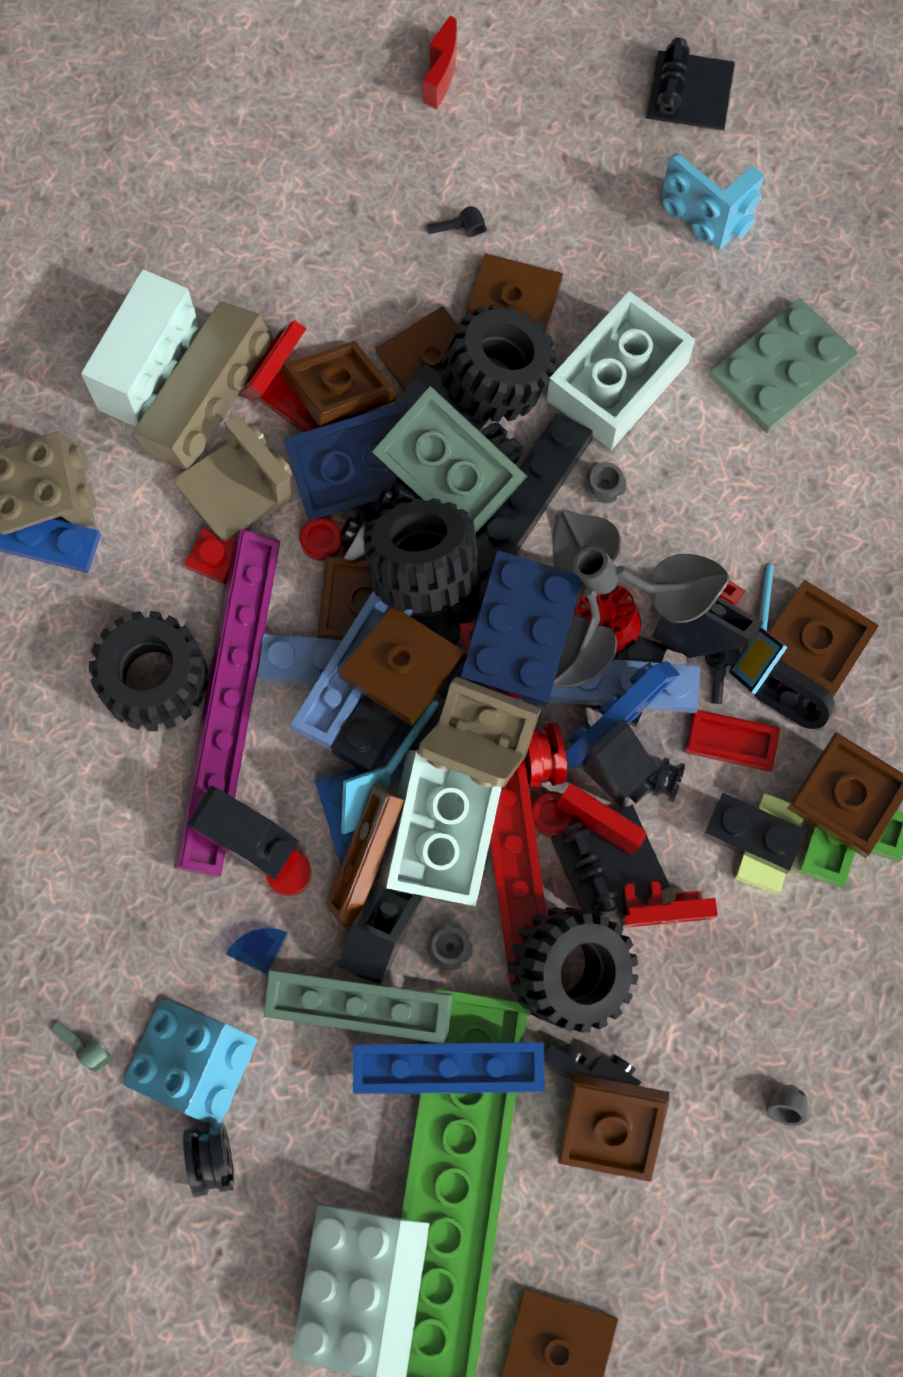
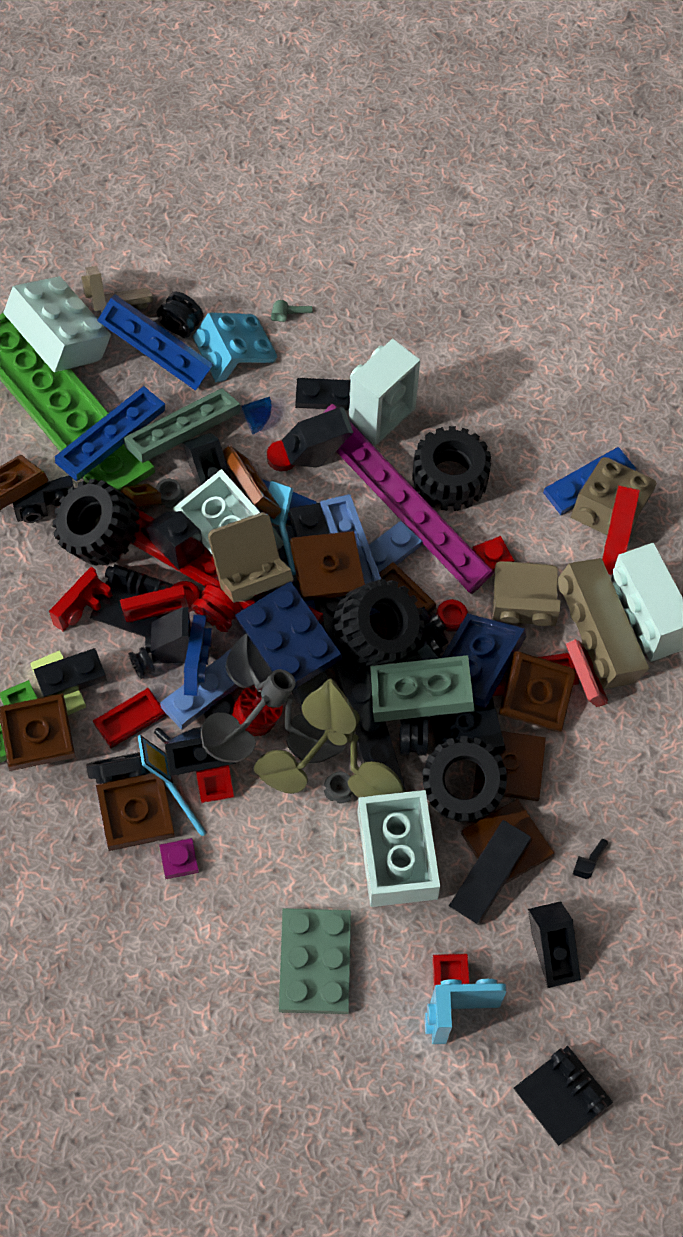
camera: 130 degrees right, 10 degrees down
(79, 442) = (620, 525): none -> red sticker
(123, 802) = (383, 391): none -> light aqua brick
(163, 899) = (321, 393): none -> black plate
(255, 1260) = (94, 290): none -> dark tan bracket
(281, 1142) = (155, 342): none -> blue plate
(486, 967) = (142, 494): none -> reddish brown tile
(513, 867) = (175, 537): none -> black slope
(559, 282) = (490, 872): none -> black tile
(564, 503) = (328, 711): none -> olive plant
(568, 188) = (555, 943): none -> black slope
(681, 246) = (450, 967): none -> red plate
(816, 561) = (178, 858): none -> magenta plate

